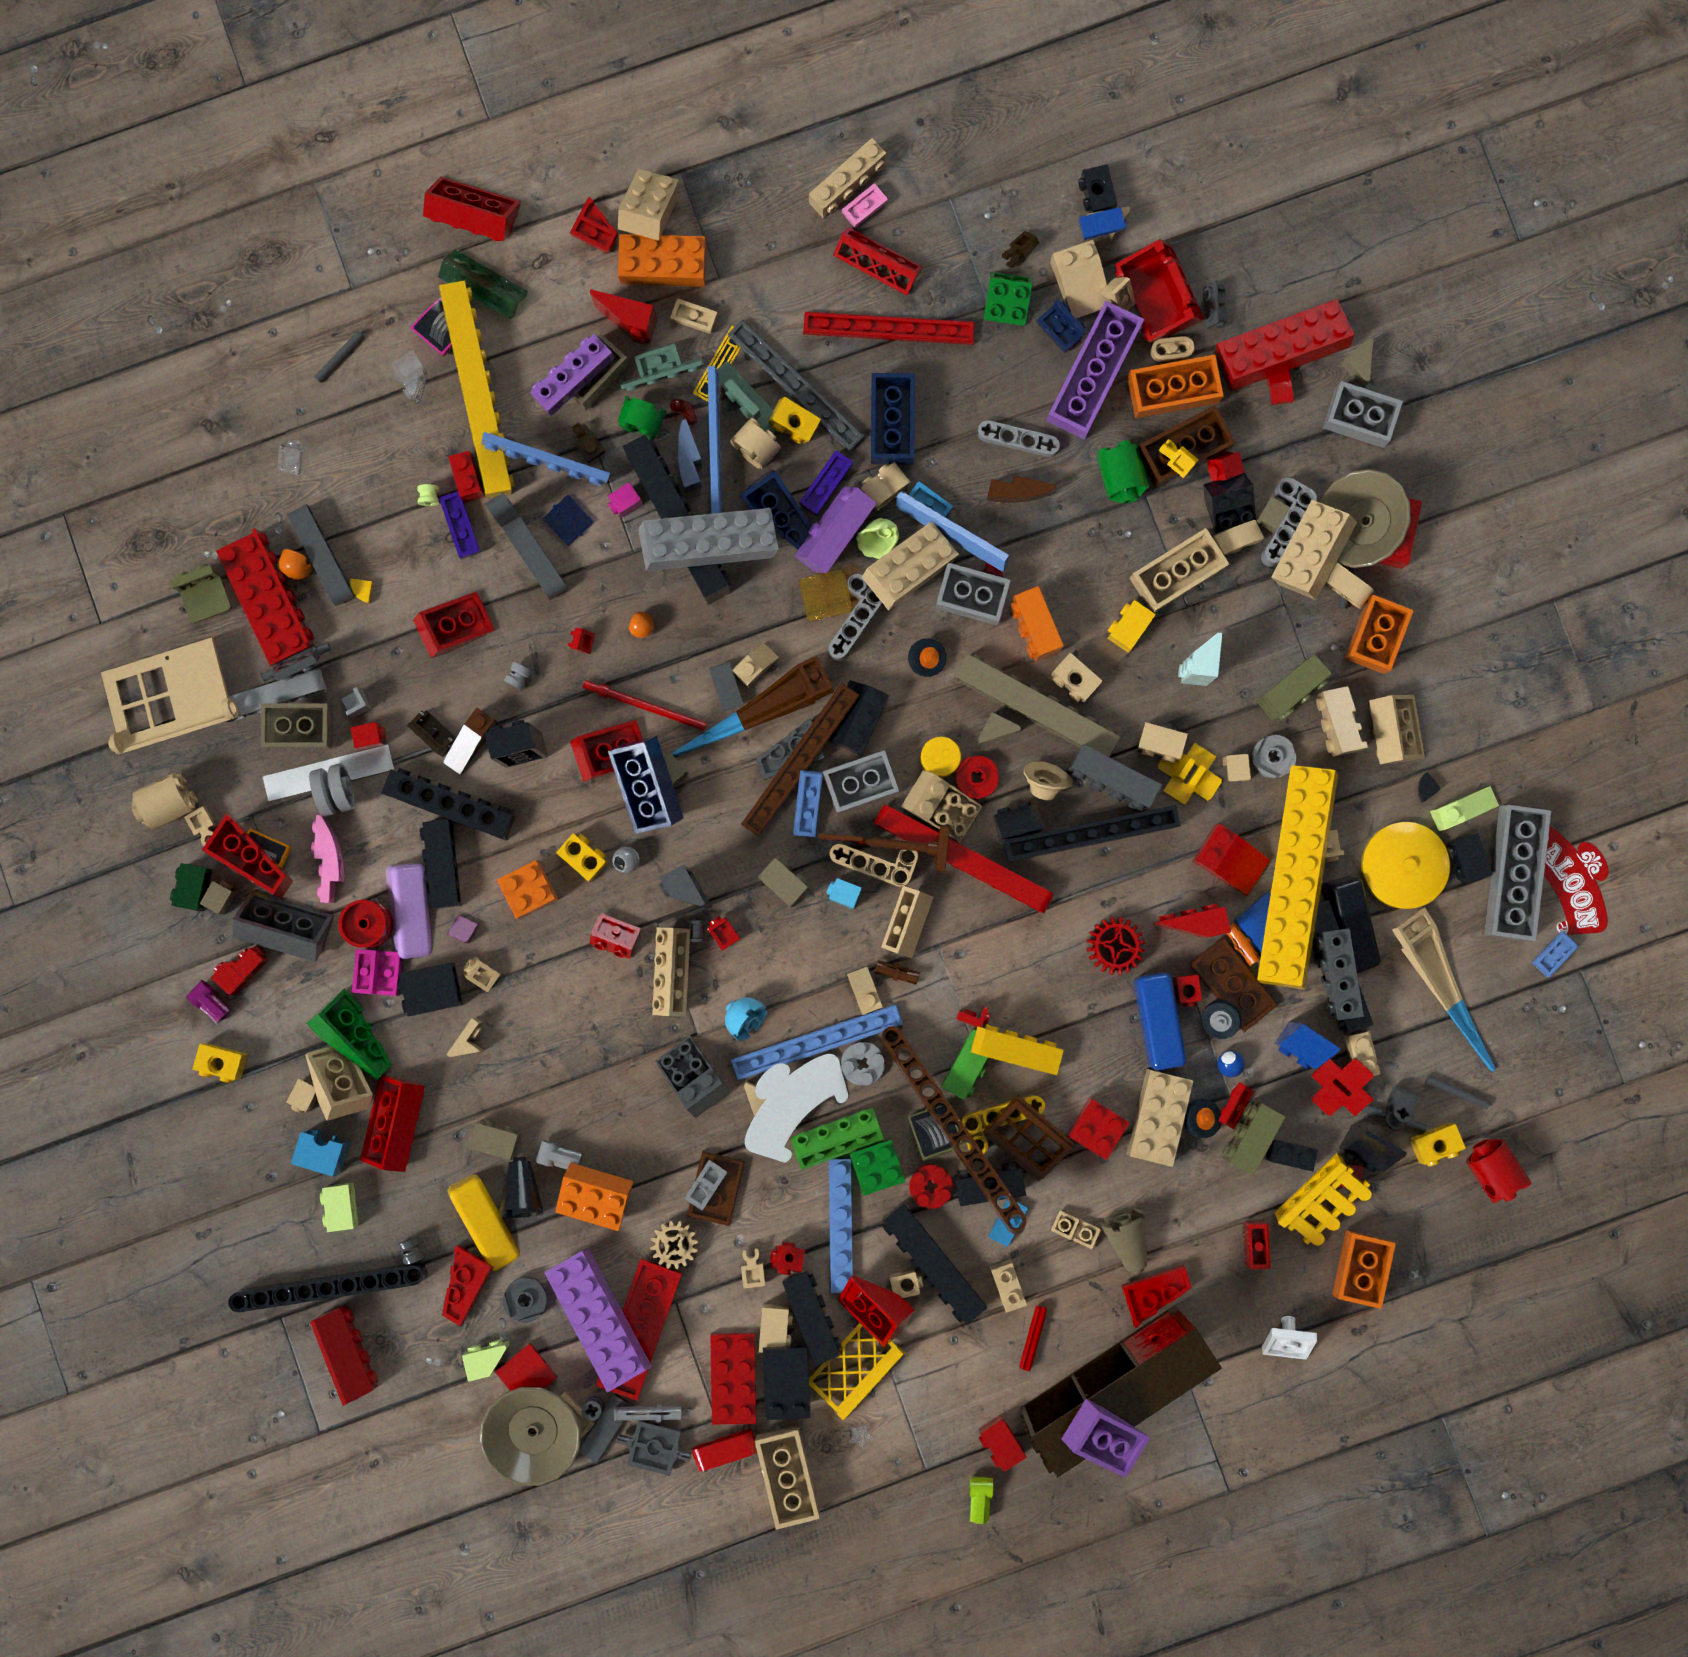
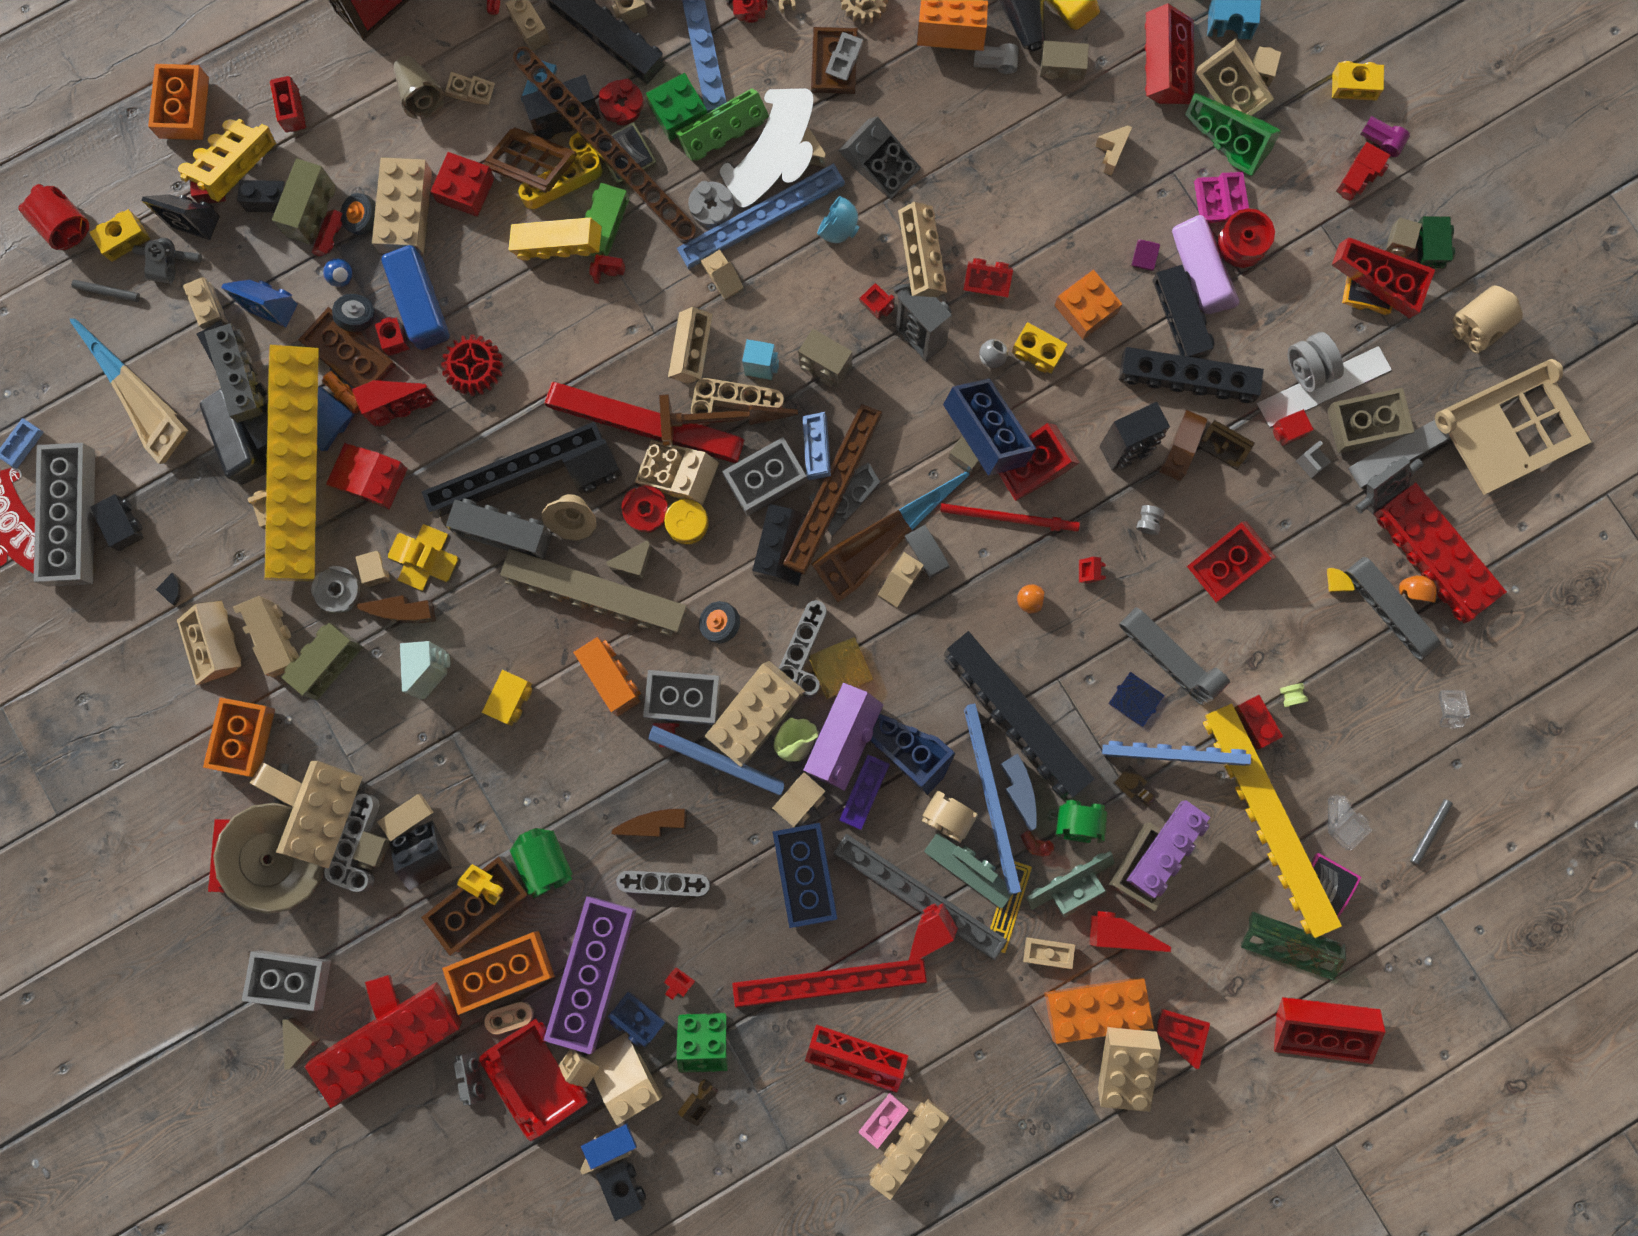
camera: 170 degrees right, 5 degrees down
(200, 823) = (1441, 308): tan plate -> none
(202, 593) = (1507, 542): olive bracket -> none
(282, 926) = (1328, 220): dark grey slope -> none
(329, 851) = (1303, 305): bright pink slope -> none
(430, 989) = (1163, 189): black brick -> none
(459, 525) = (1251, 668): dark purple plate -> none
(480, 973) = (1117, 214): tan bracket -> none
(624, 500) = (1079, 730): dark pink brick -> none
(708, 539) = (978, 689): light grey brick -> none
(790, 346) = (933, 931): none -> red slope
(806, 420) = (927, 855): yellow brick -> none
(896, 972) = (692, 297): reddish brown pin -> none
(930, 499) = (747, 793): dark azure plate -> none
(1019, 350) = (678, 983): none -> red tile
(1071, 666) = (543, 629): tan brick -> none
(1152, 1292) = (388, 43): red wing -> none
(1162, 742) = (455, 579): tan brick -> none
(1179, 571) = (463, 765): tan brick -> none
(1217, 724) = (400, 610): none -> reddish brown slope
(1225, 466) = (429, 891): red brick -> none
(1288, 1341) = (244, 22): white tile -> none
(1337, 1083) = (226, 268): red piece -> none
(1405, 865) = (184, 505): yellow dish -> none
(1464, 809) = (129, 572): yellowish green slope -> none

